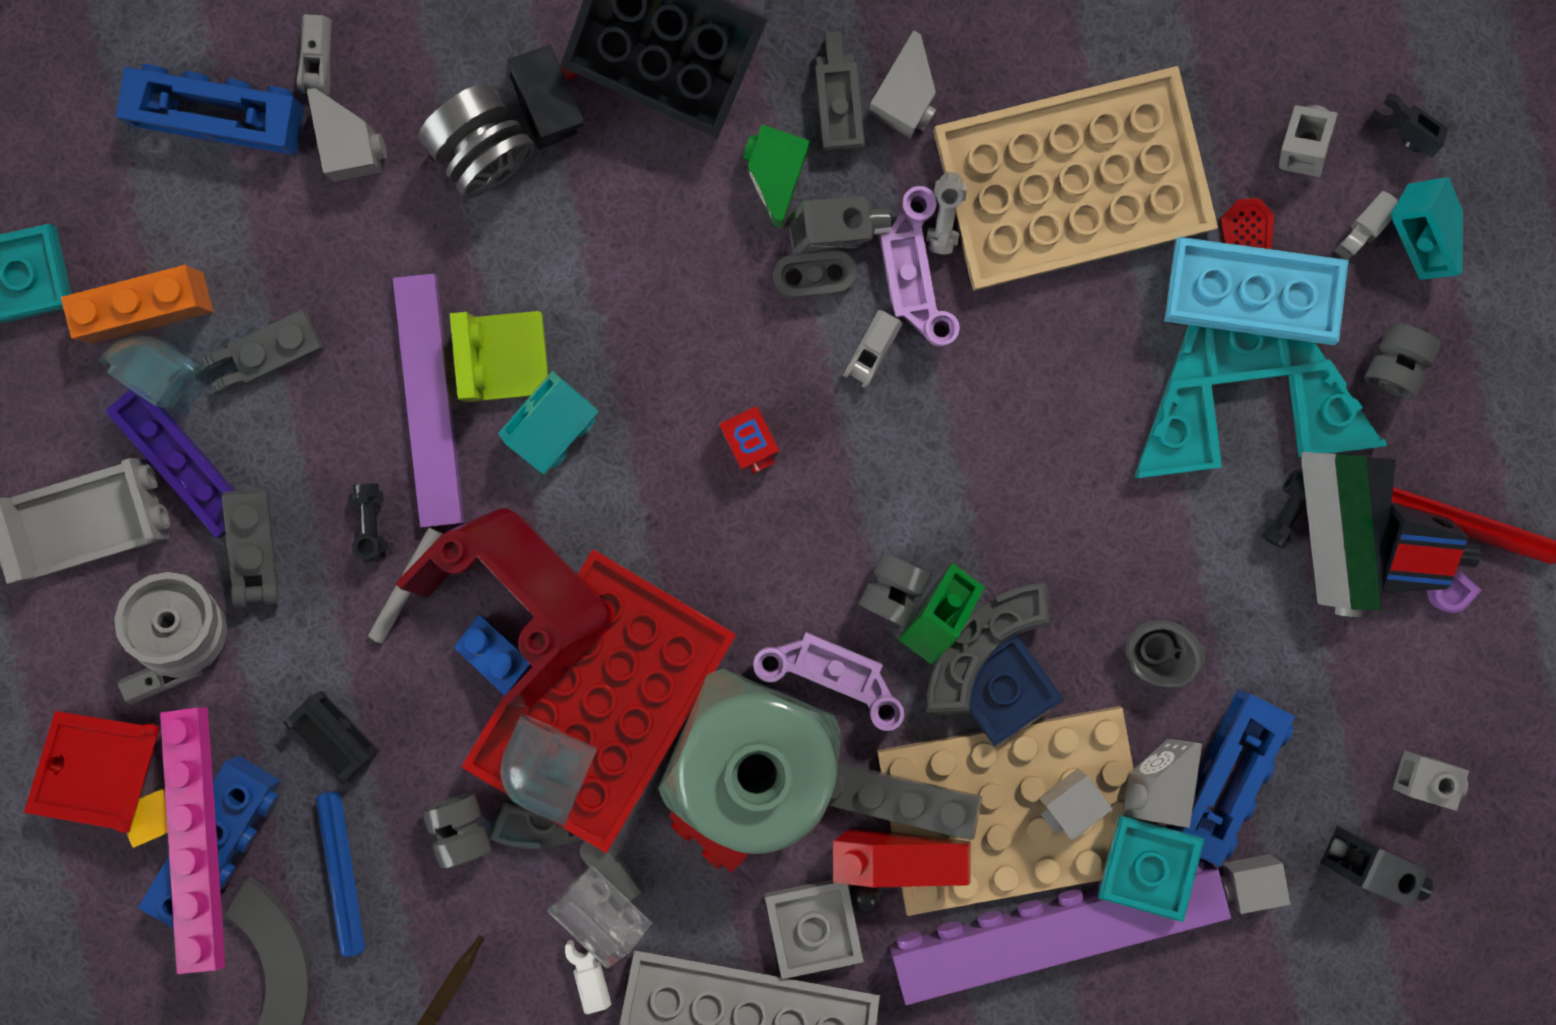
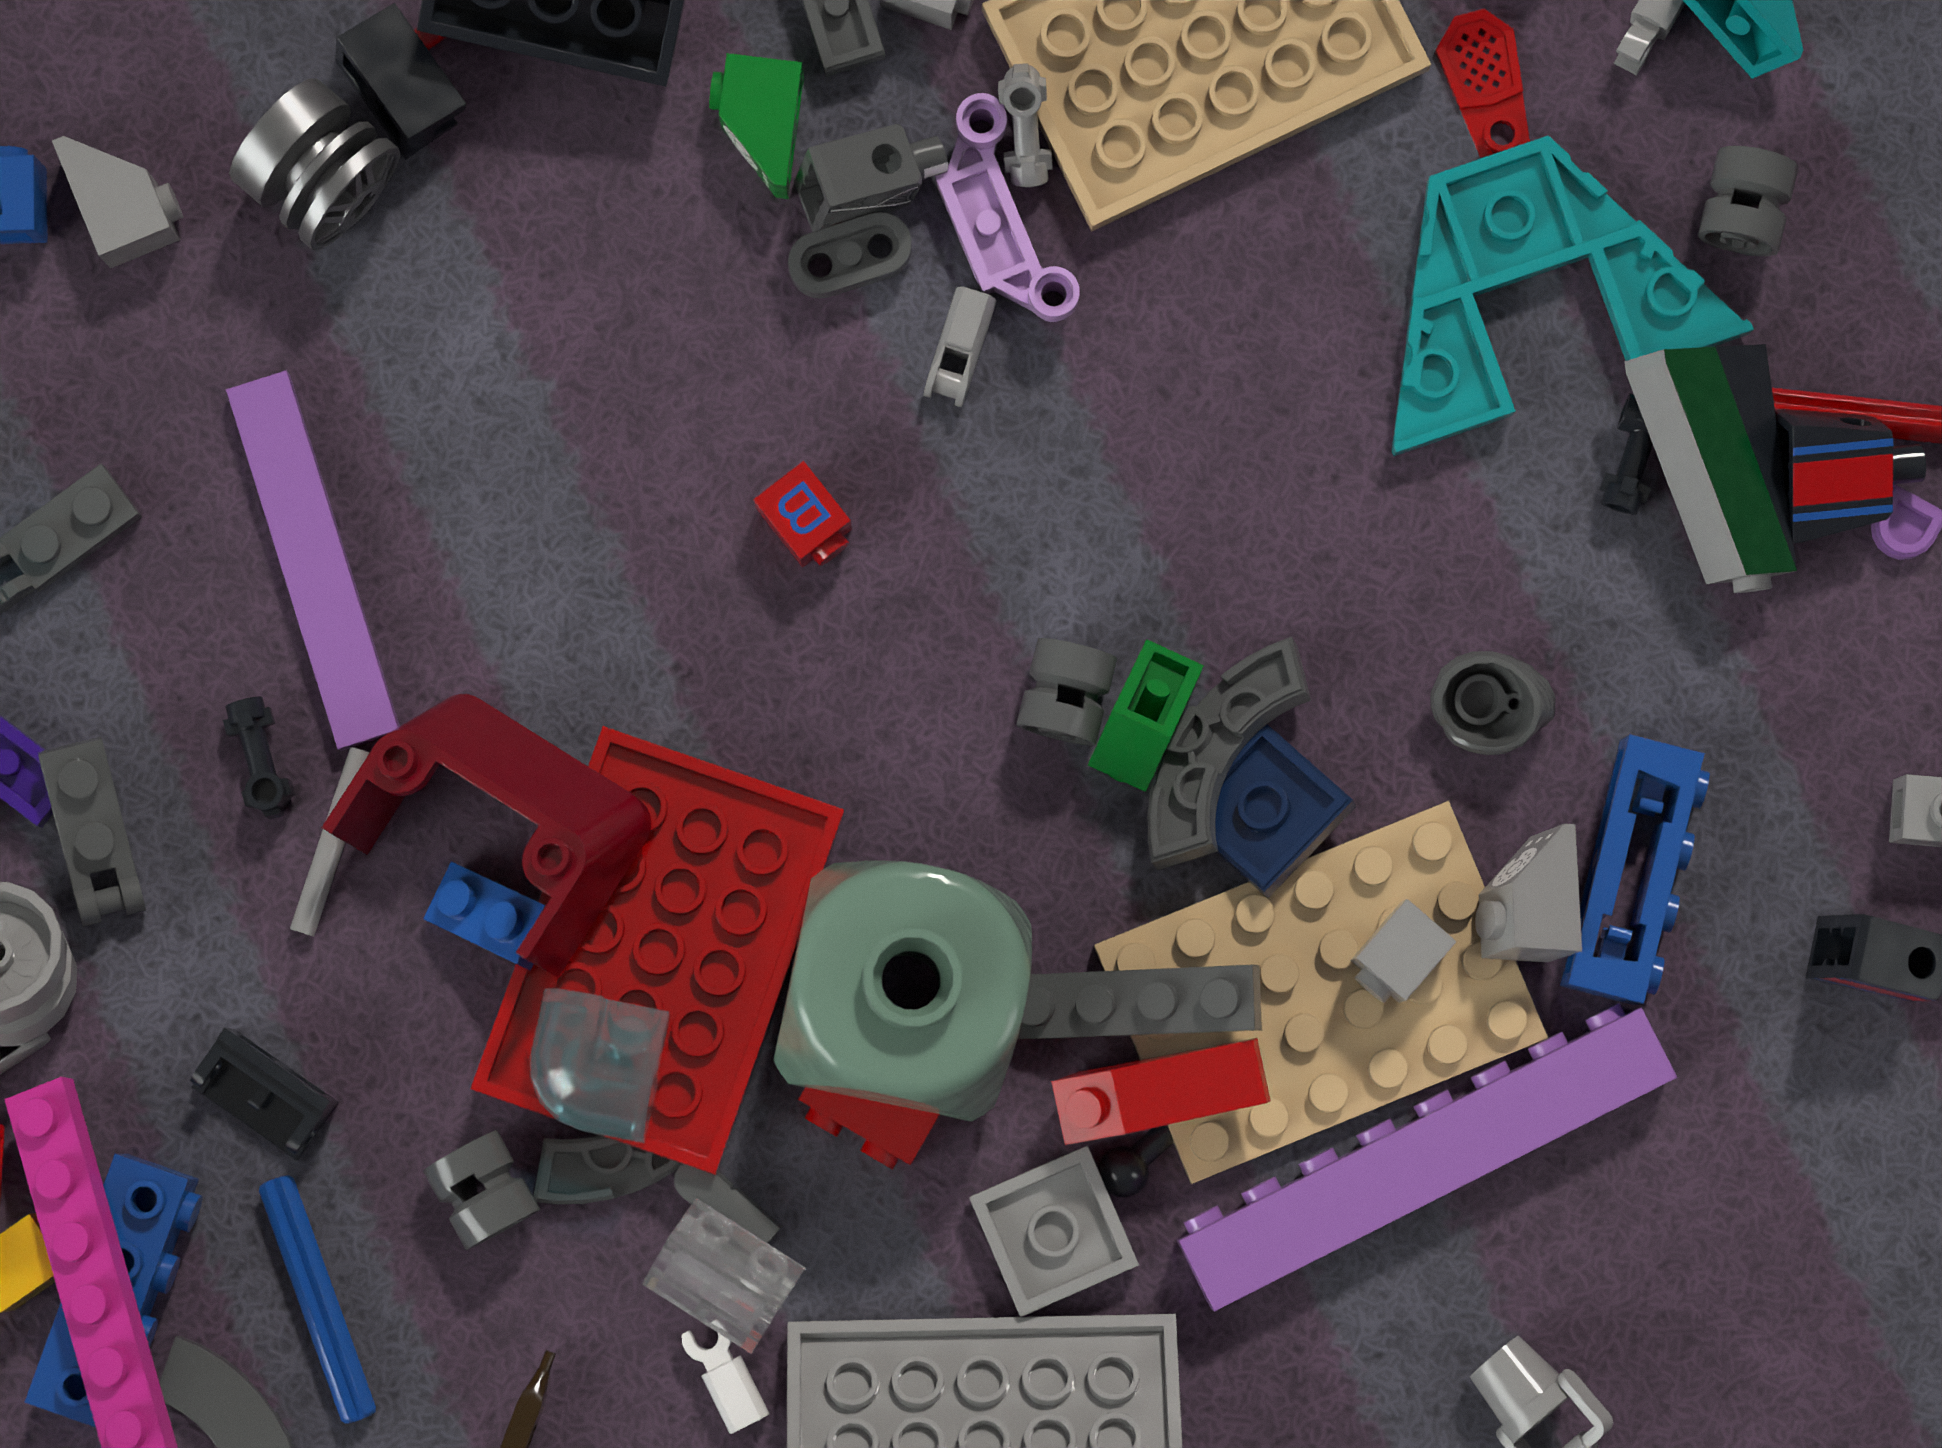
camera: 15 degrees left, 5 degrees down
(315, 49) = (49, 83): light grey bar -> none
(498, 355) = (409, 470): lime bracket -> none
(548, 423) = (501, 552): teal hinge -> none
(835, 669) = (1004, 832): lavender plate -> none
(1151, 868) = (1537, 1022): teal plate -> none
(1255, 884) = (1706, 1024): light grey brick -> none
(1256, 291) = (1505, 142): medium azure plate -> none

